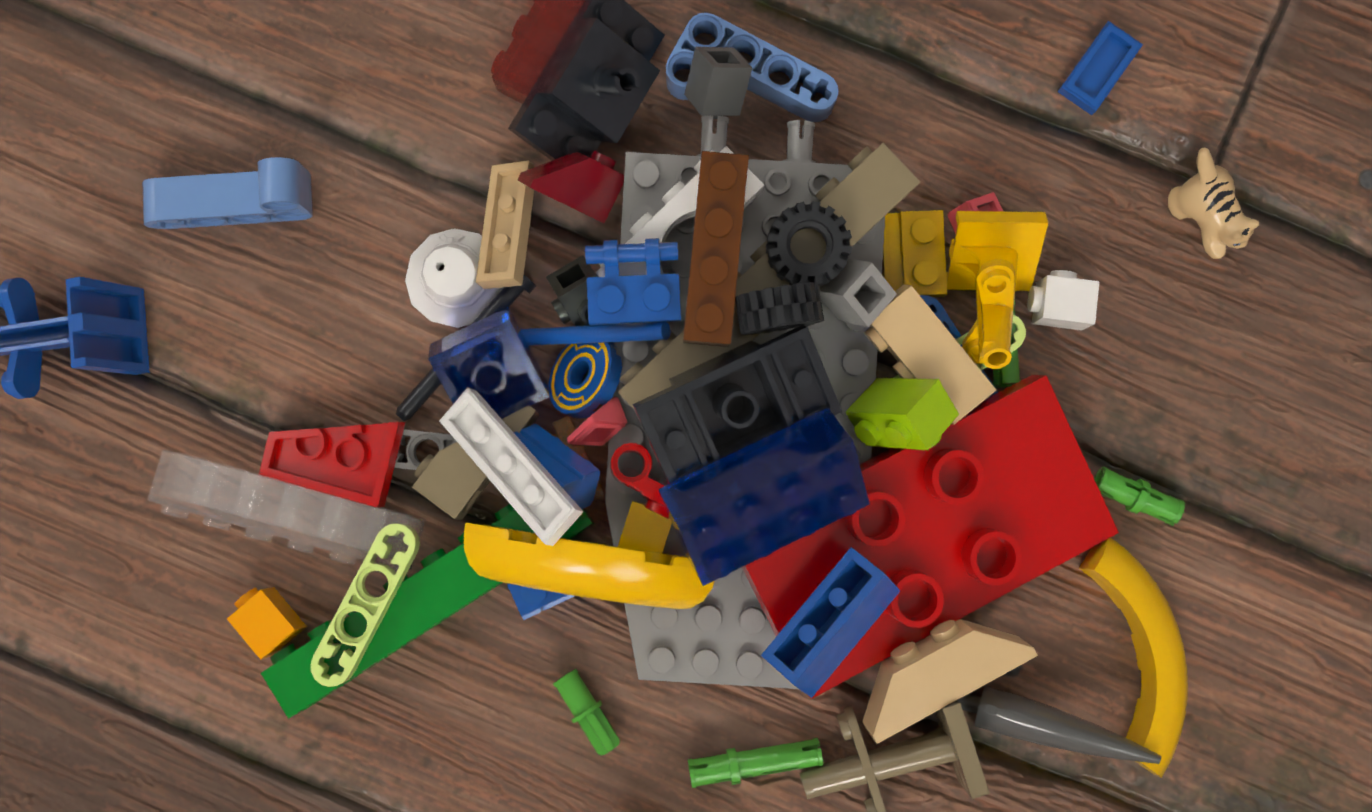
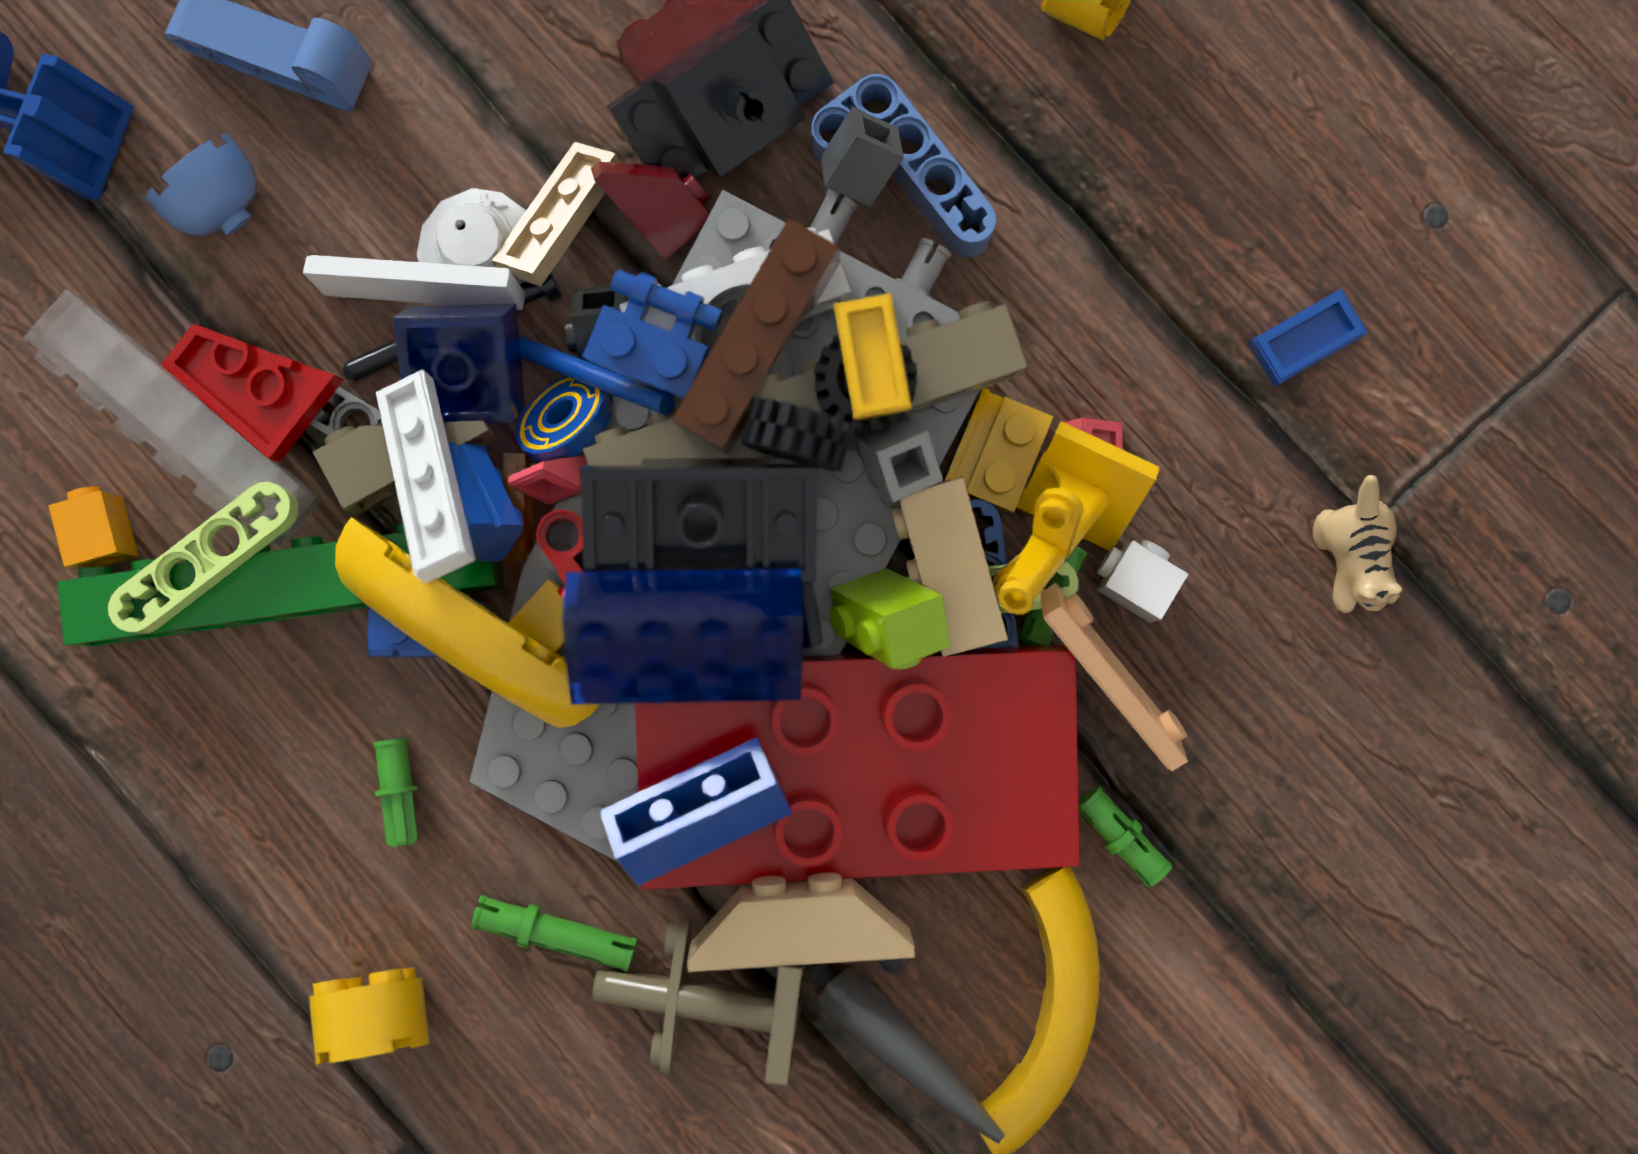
camera: 25 degrees right, 0 degrees up
(235, 327) = (207, 190): none -> medium blue cylinder
(422, 325) = (413, 281): none -> white tile
(809, 226) = (872, 356): none -> yellow tile
(1131, 406) = (1071, 623): none -> light nougat plate

